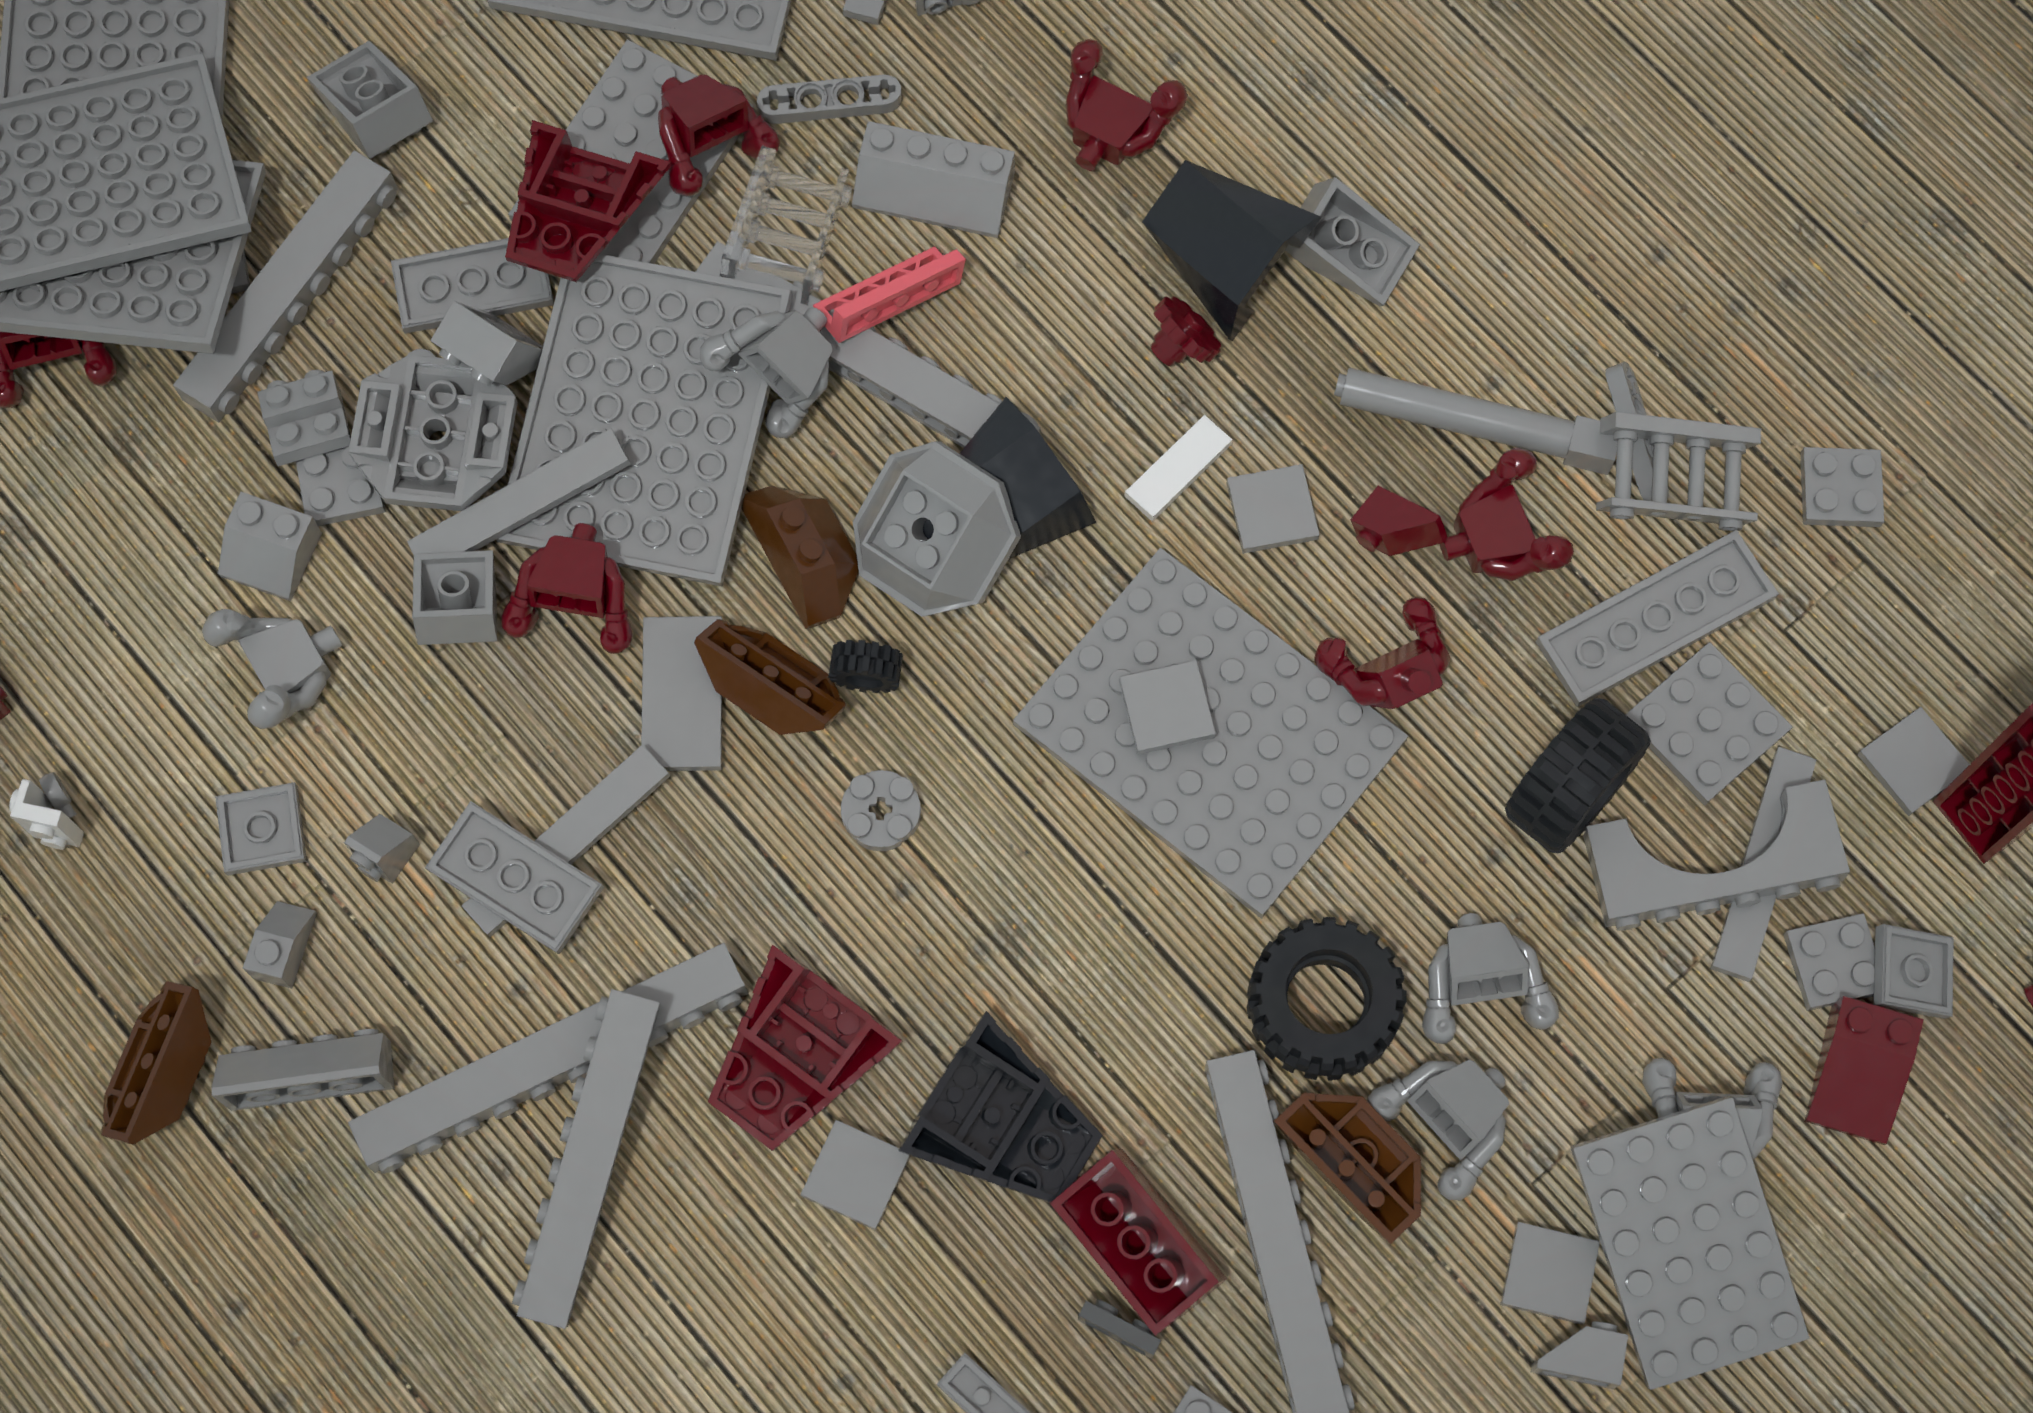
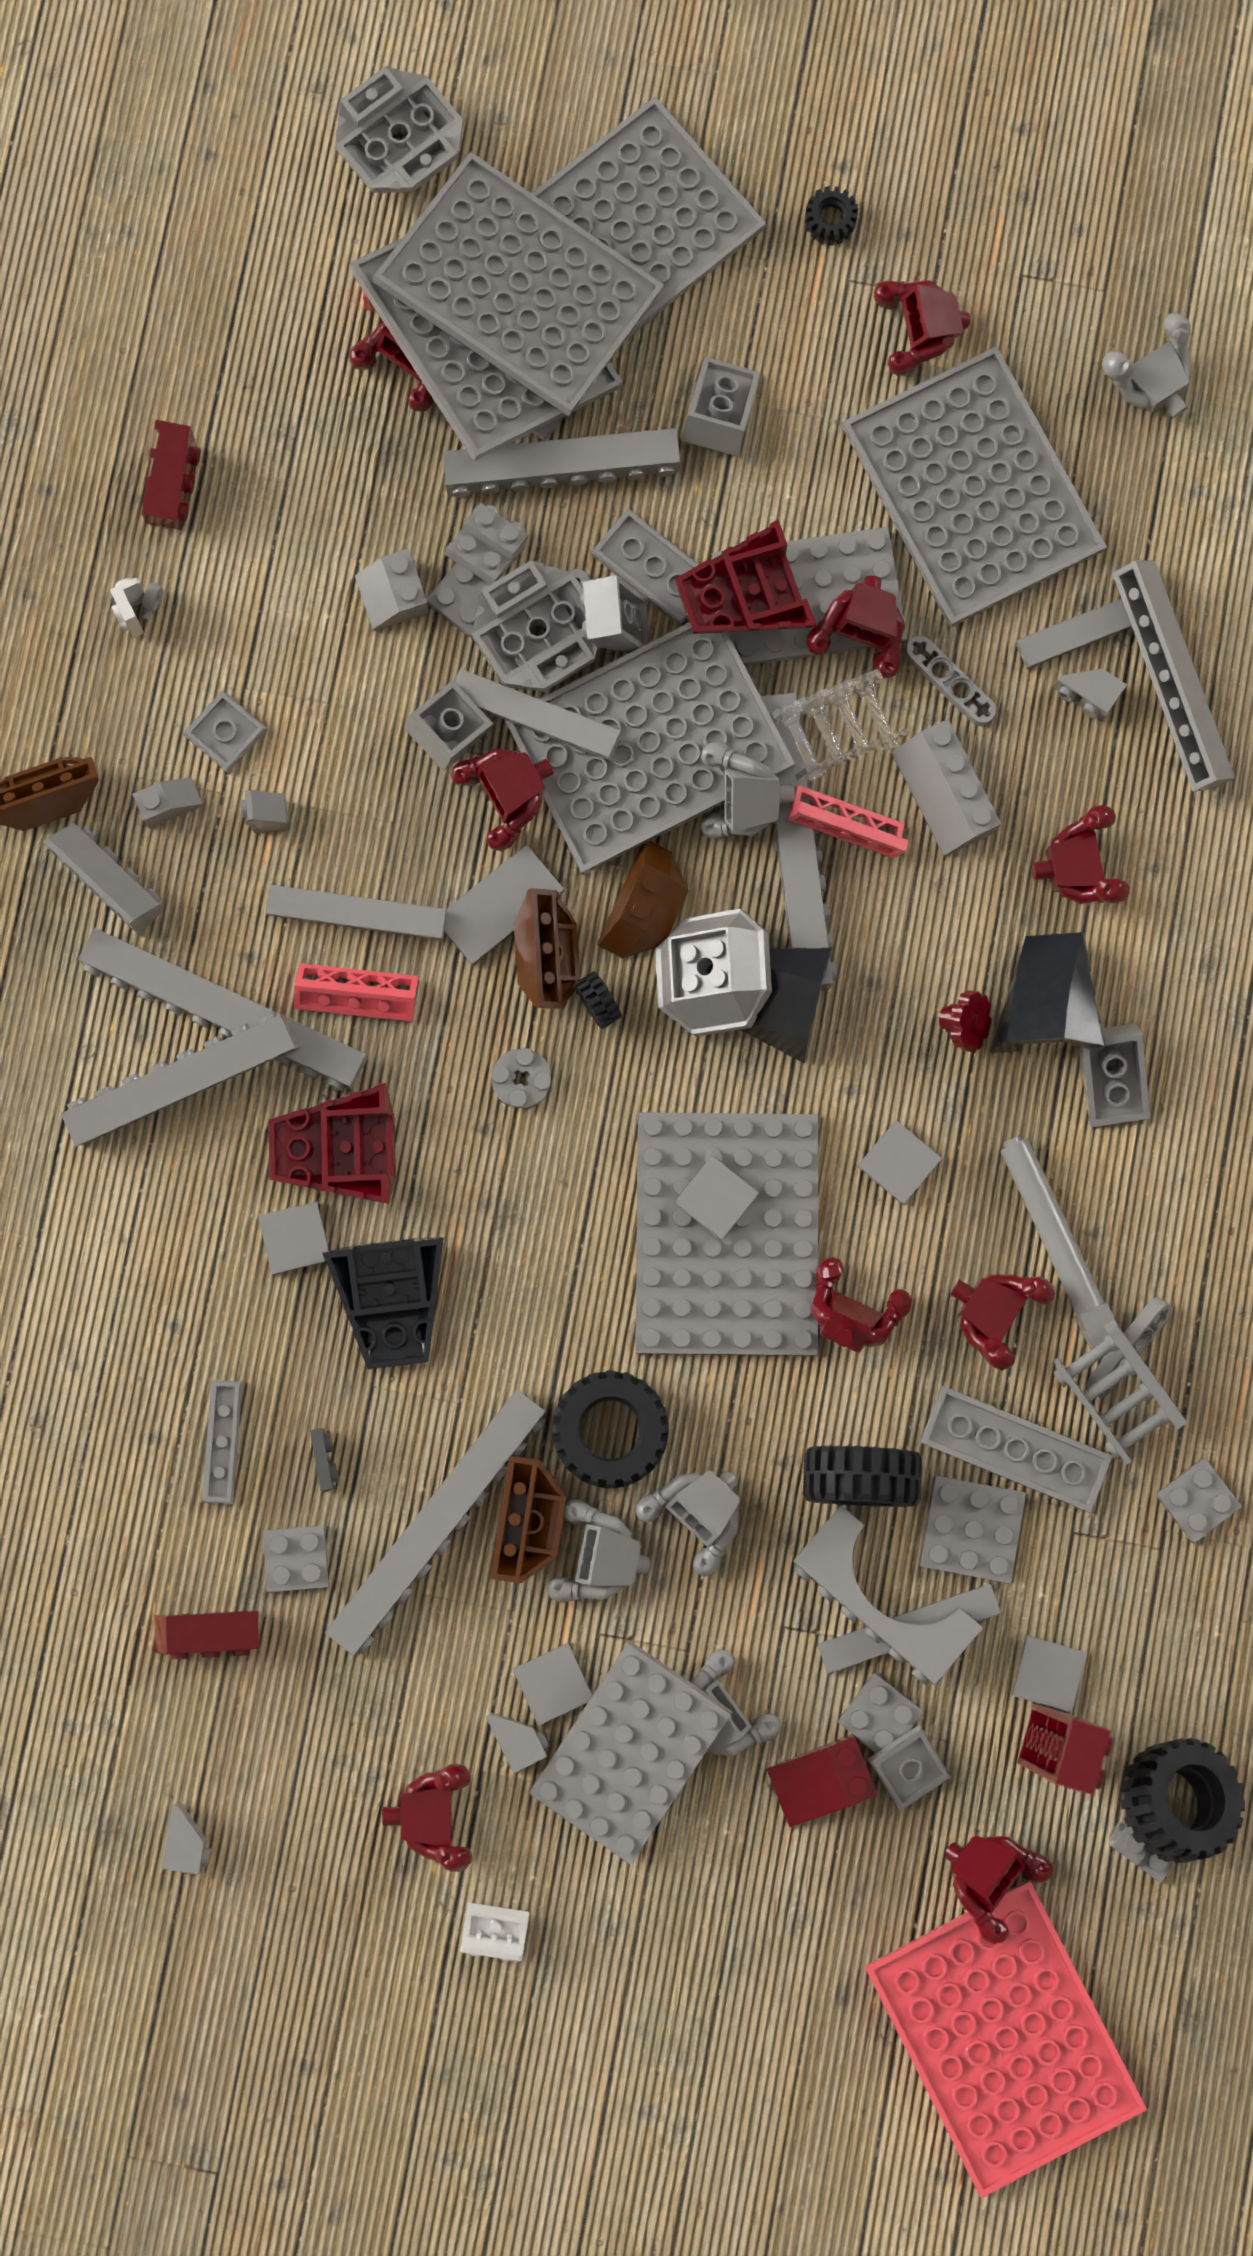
camera: 45 degrees right, 10 degrees up
(283, 658) = (332, 659): light grey torso -> none
(514, 877) = (309, 901): light grey tile -> none
(652, 909) = (355, 996): none -> coral fence
(1138, 1241) = (381, 1431): dark red slope -> none
(1178, 468) = (879, 1085): white tile -> none
(1396, 524) = (944, 1244): dark red slope -> none

